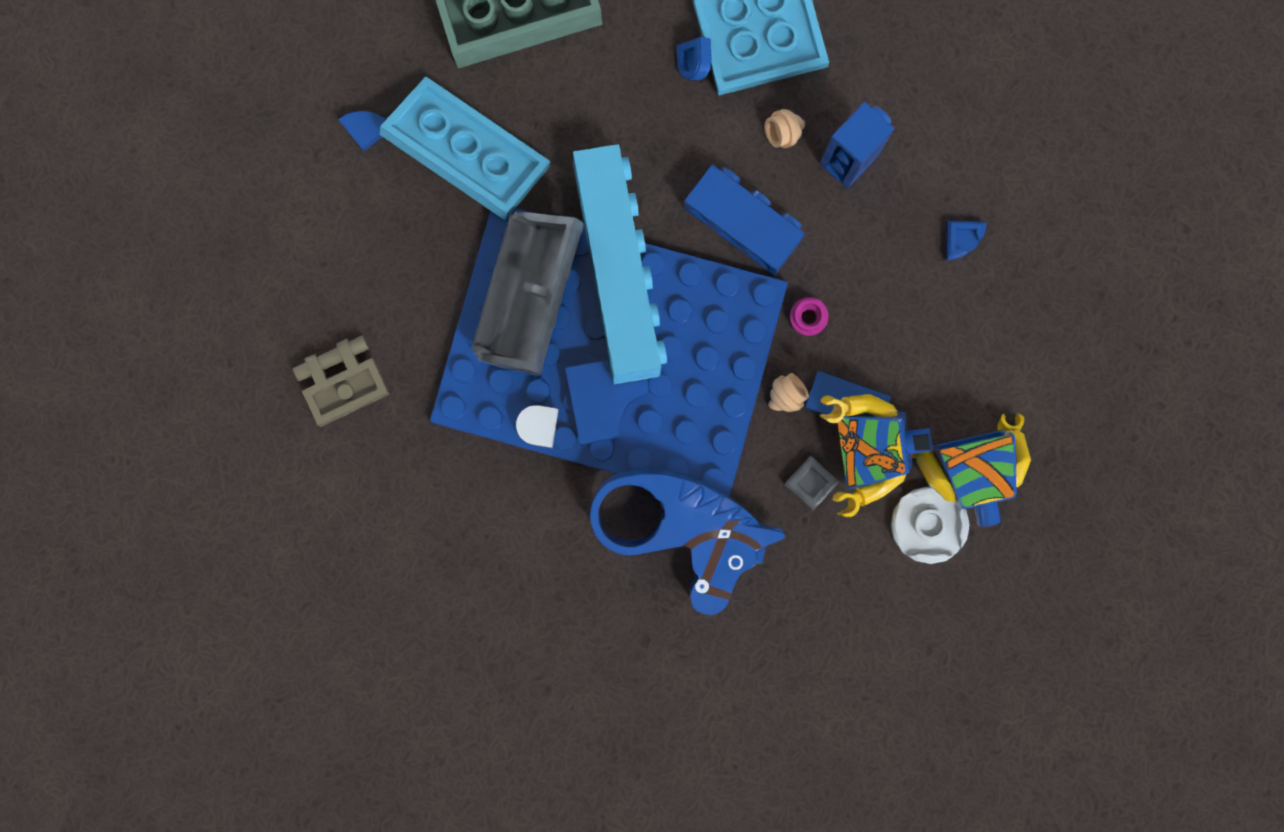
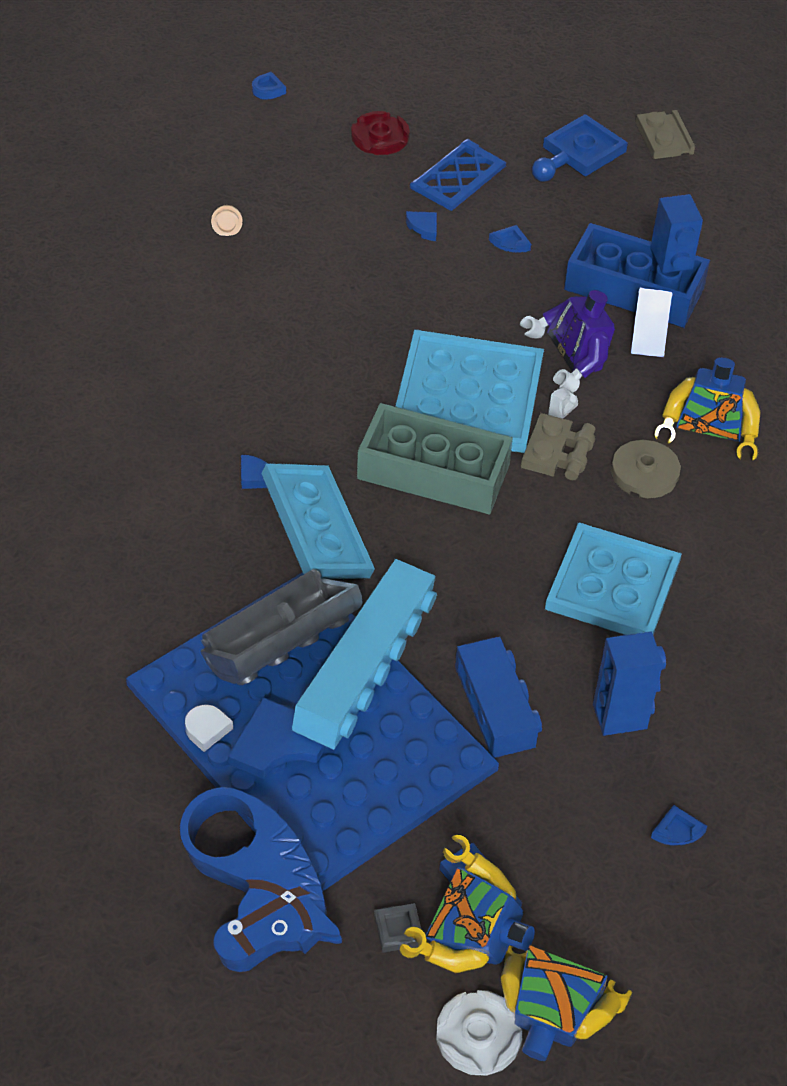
camera: 30 degrees right, 35 degrees down
(346, 391) = (82, 618): dark tan plate -> none
(694, 58) = (544, 570): blue tile -> none
(784, 128) = (581, 658): light nougat plate -> none
(788, 394) = (431, 842): light nougat plate -> none
(813, 305) = (497, 790): dark pink plate -> none

